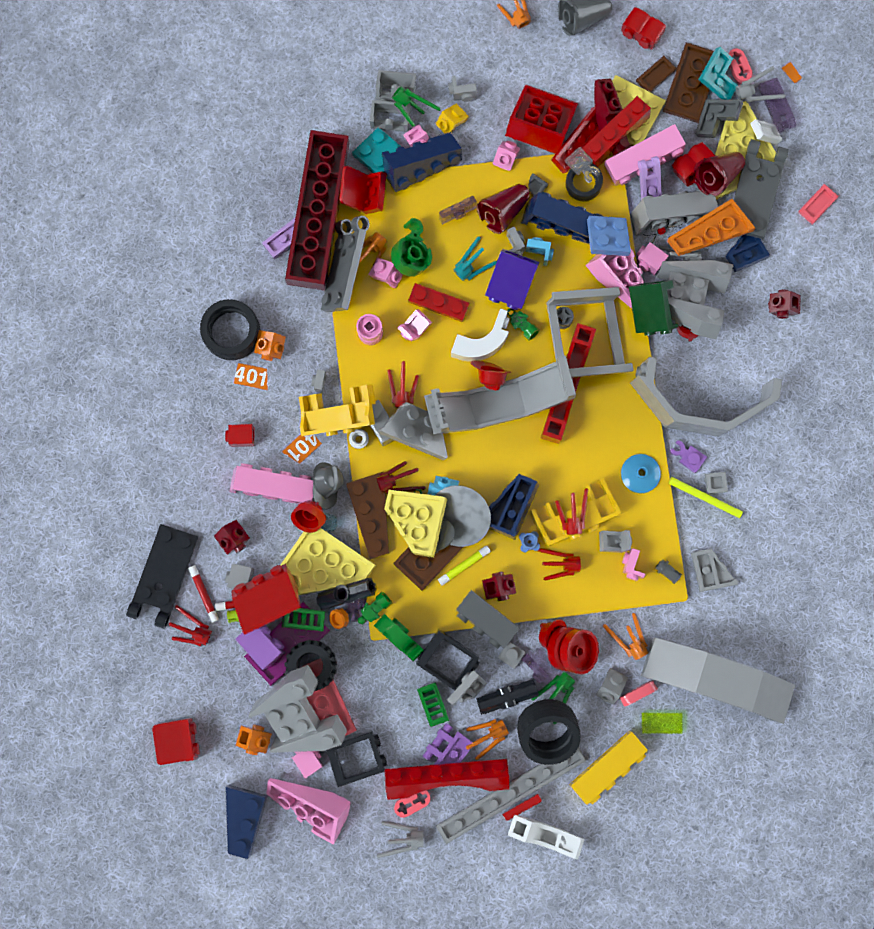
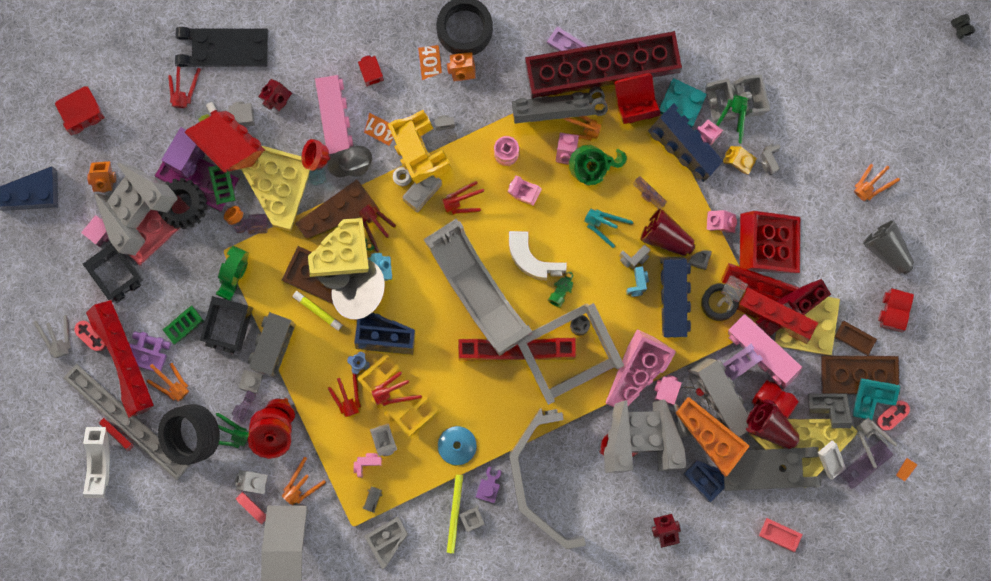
camera: 70 degrees right, 0 degrees up
(203, 593) = (218, 88): red bar -> none
(318, 807) = (60, 256): bright pink wedge -> none
(355, 591) = (255, 213): black piece -> none
(370, 612) = (247, 241): green piece -> none
(413, 428) = (424, 219): light grey wing -> none
(438, 302) = (555, 206): red plate -> none
(469, 688) = (207, 351): light grey wing -> none
(490, 374) = (502, 273): red piece -> none
(499, 586) = (306, 347): dark red brick -> none
(507, 697) = (210, 389): black piece -> none
(511, 279) = (598, 263): dark purple panel -> none
(608, 235) = (669, 339): medium blue plate -> none
(608, 768) = (175, 501): yellow brick -> none
(652, 307) = (614, 401): dark green panel -> none
(662, 723) = (232, 538): clear neon green tile -> none

